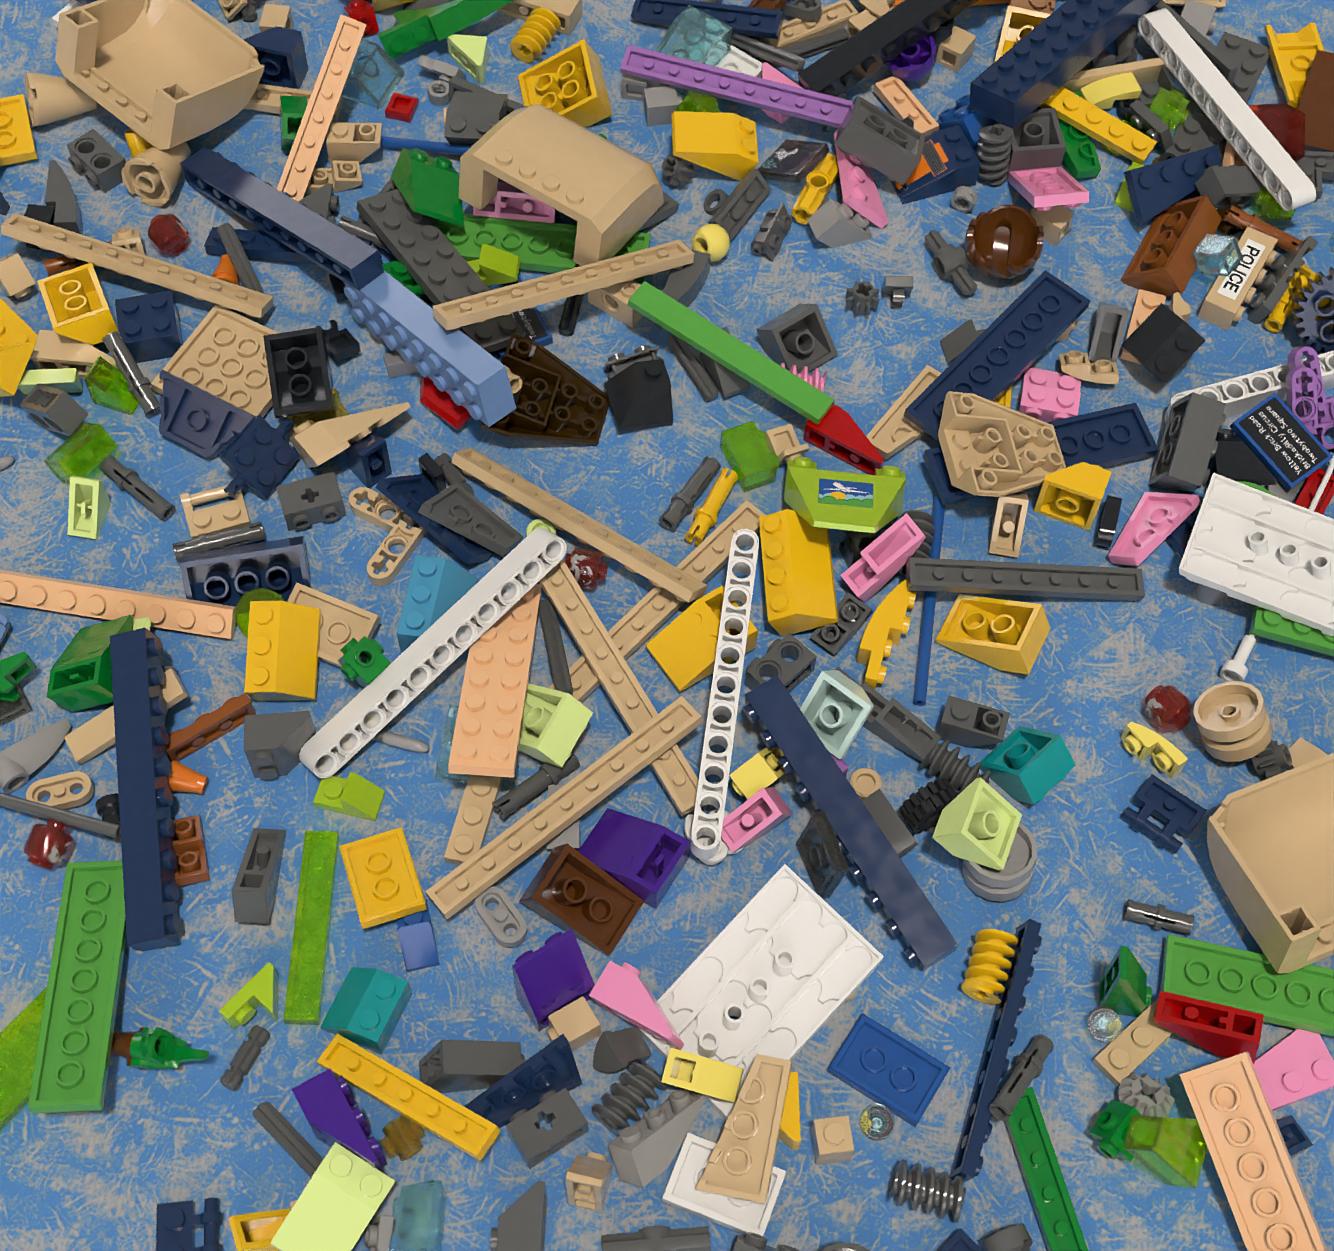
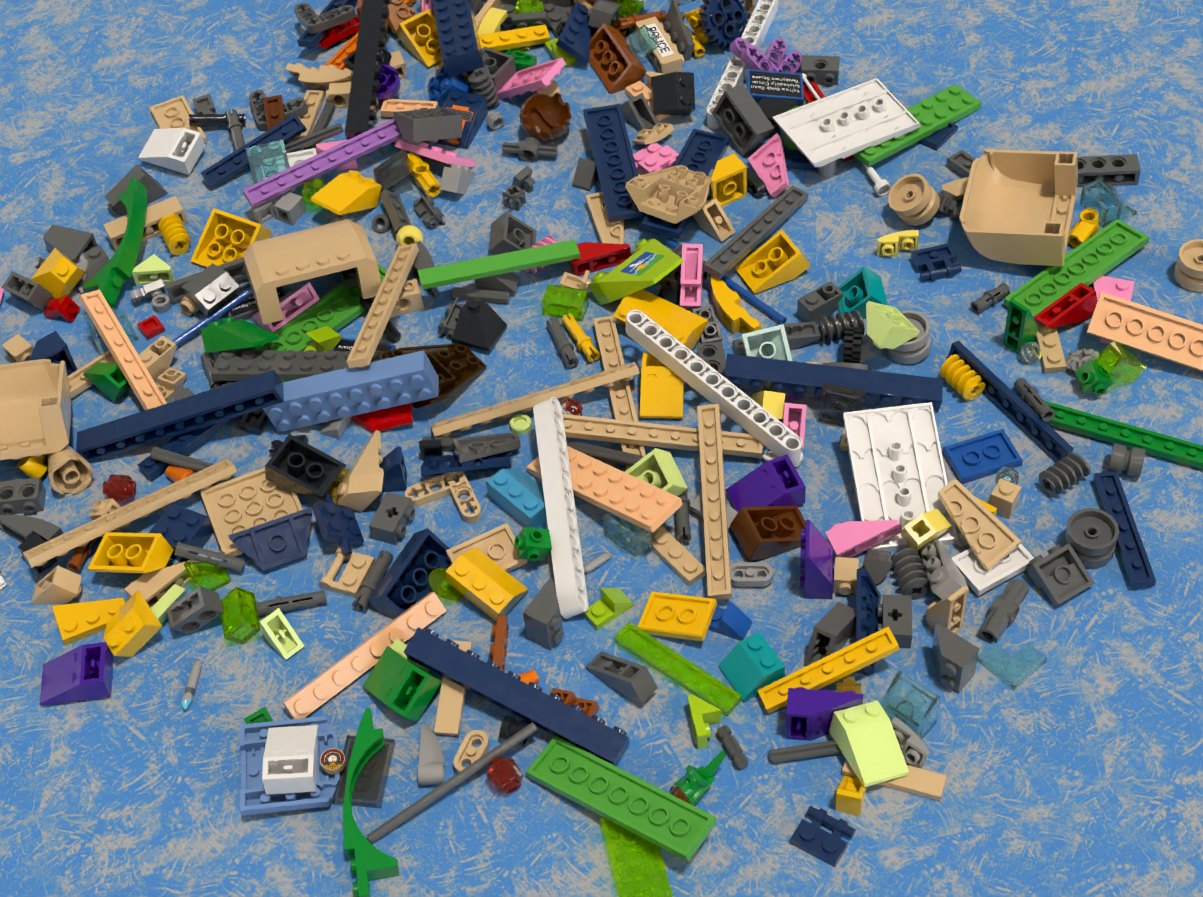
camera: 45 degrees left, 10 degrees down
(1168, 708) = (880, 223): clear red head -> none

